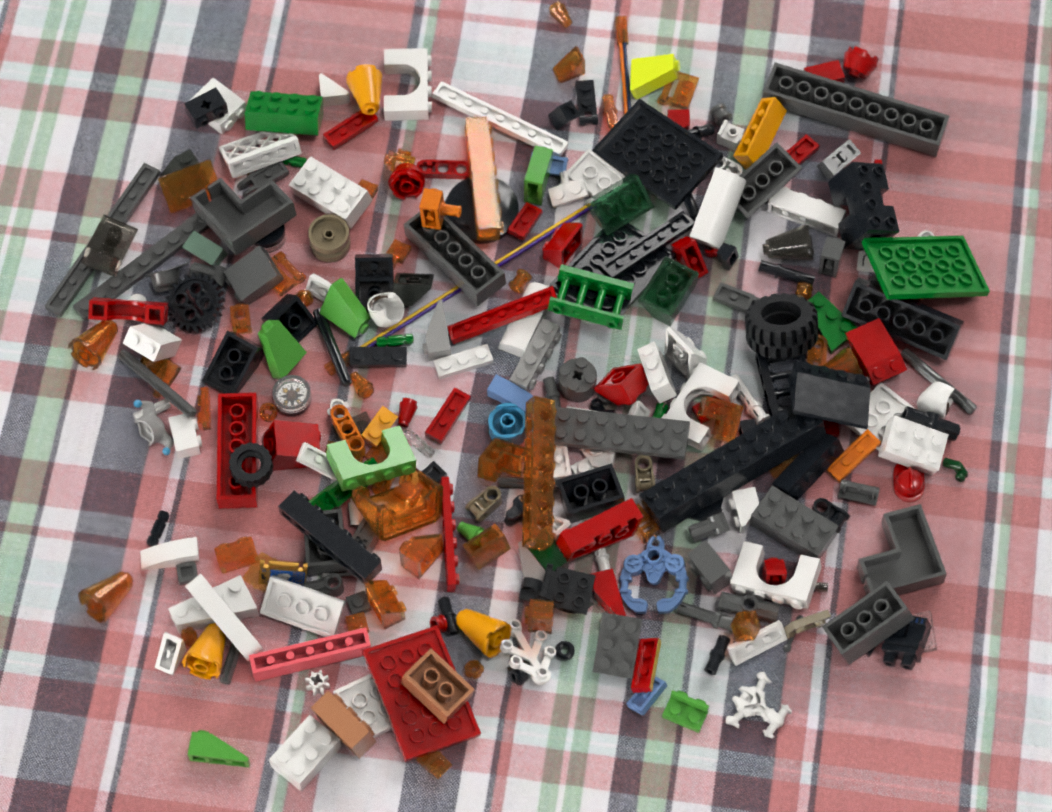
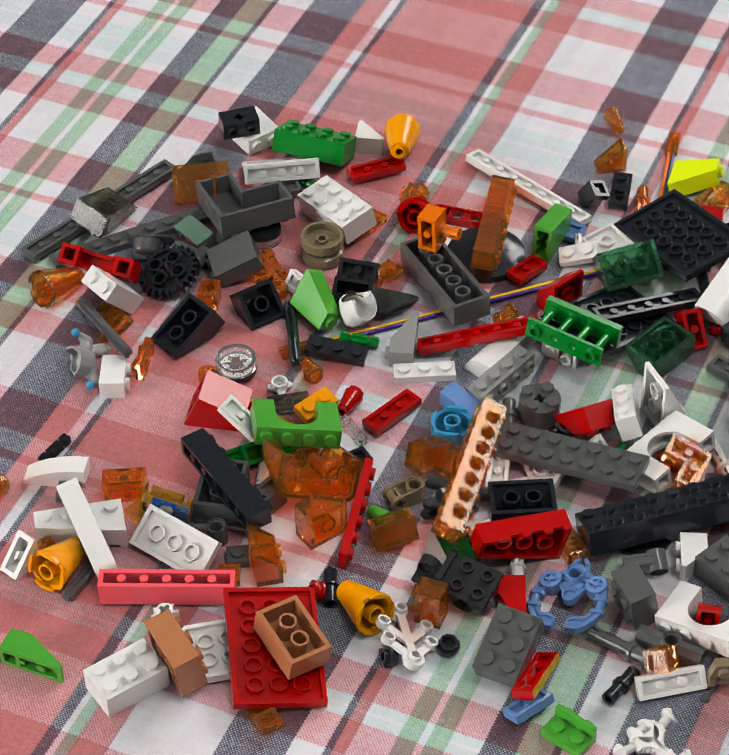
camera: 15 degrees right, 20 degrees down
(236, 426) = (161, 397): red brick -> none
(251, 450) = (169, 415): black tyre -> none
(279, 348) = (238, 318): bright green slope -> none
(347, 423) = (279, 391): orange beam -> none
(416, 104) = (444, 161): white arch -> none
(474, 664) = (341, 636): clear orange plate -> none
(643, 476) = (587, 496): dark tan piece -> none

